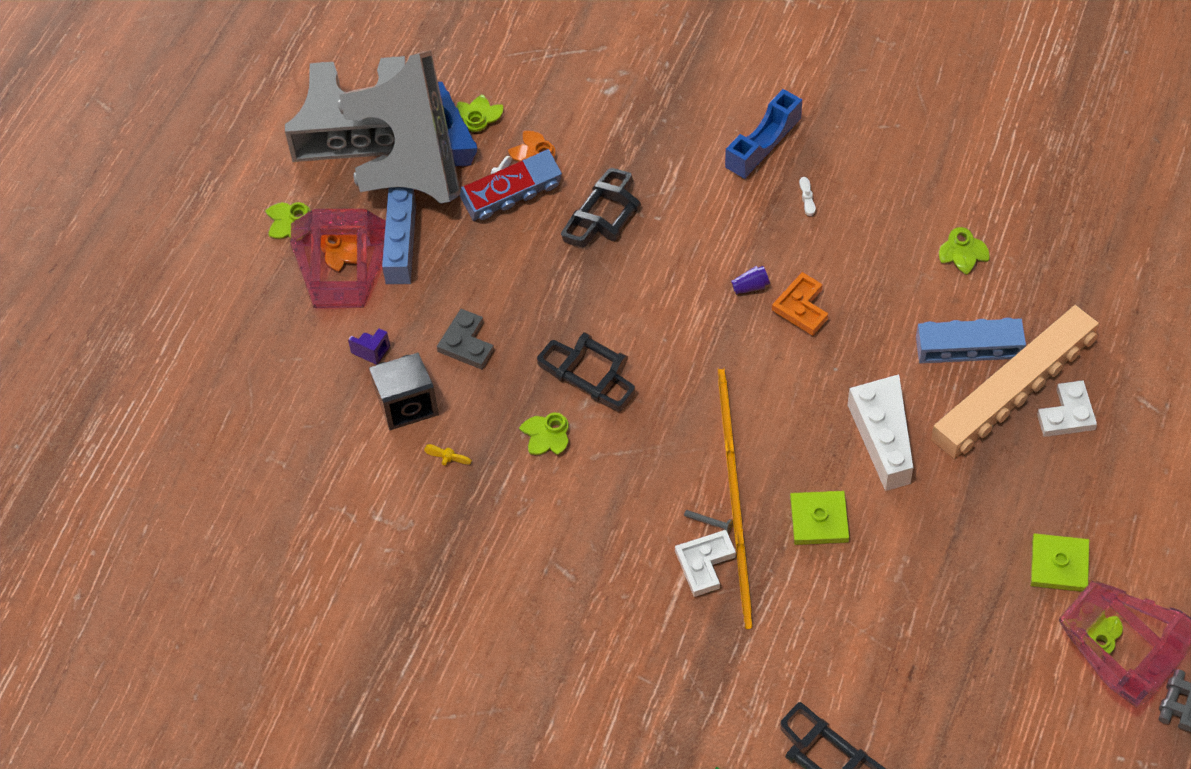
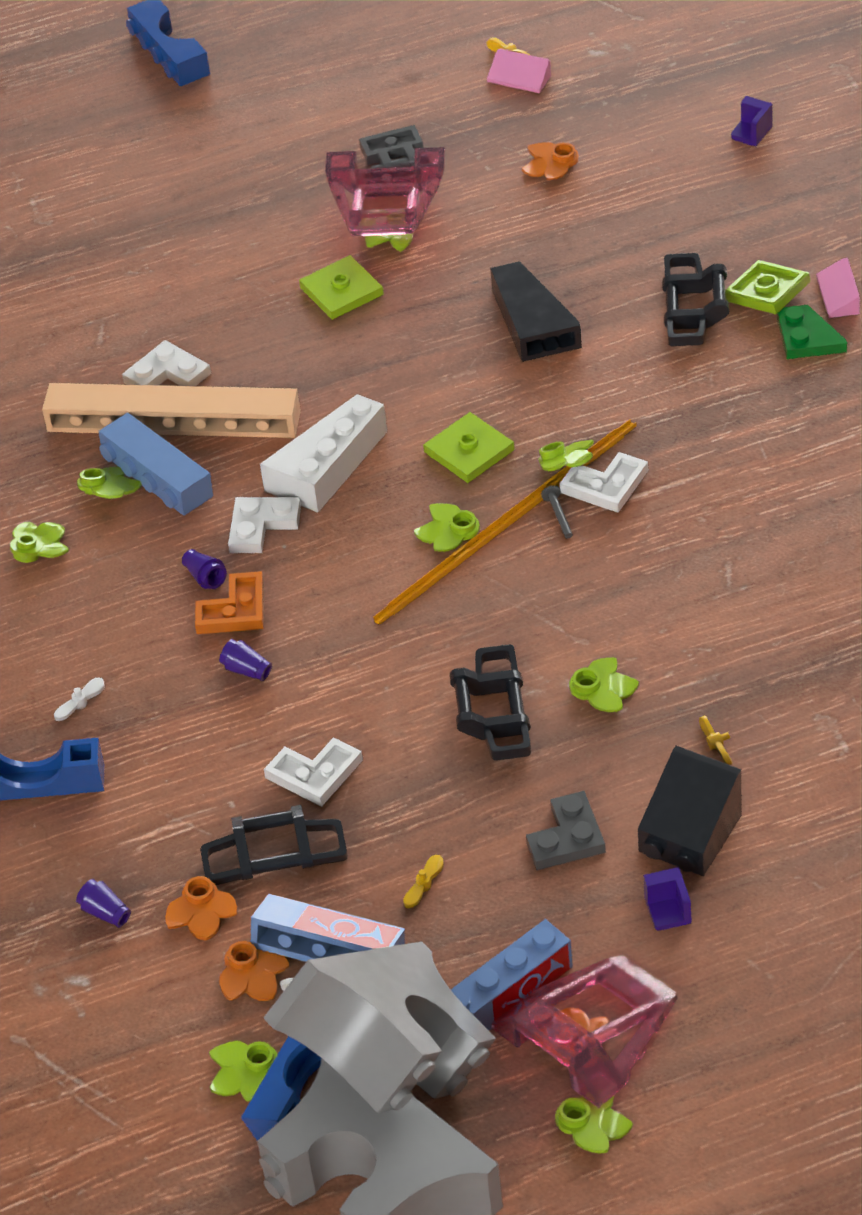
camera: 130 degrees left, 10 degrees down
(507, 257) = (423, 881): none -> yellow piece
(596, 158) = (202, 912): none -> orange plate
(628, 255) = (314, 778): none -> white plate
(642, 118) = (102, 903): none -> dark purple cone
(747, 551) = (556, 455): none -> lime plate
(759, 451) = (448, 527): none -> lime plate
(850, 309) = (206, 570): none -> dark purple cone
(869, 360) = (256, 515): none -> white plate
(912, 643) = (533, 314): none -> black slope
(975, 309) = (106, 482): none -> lime plate

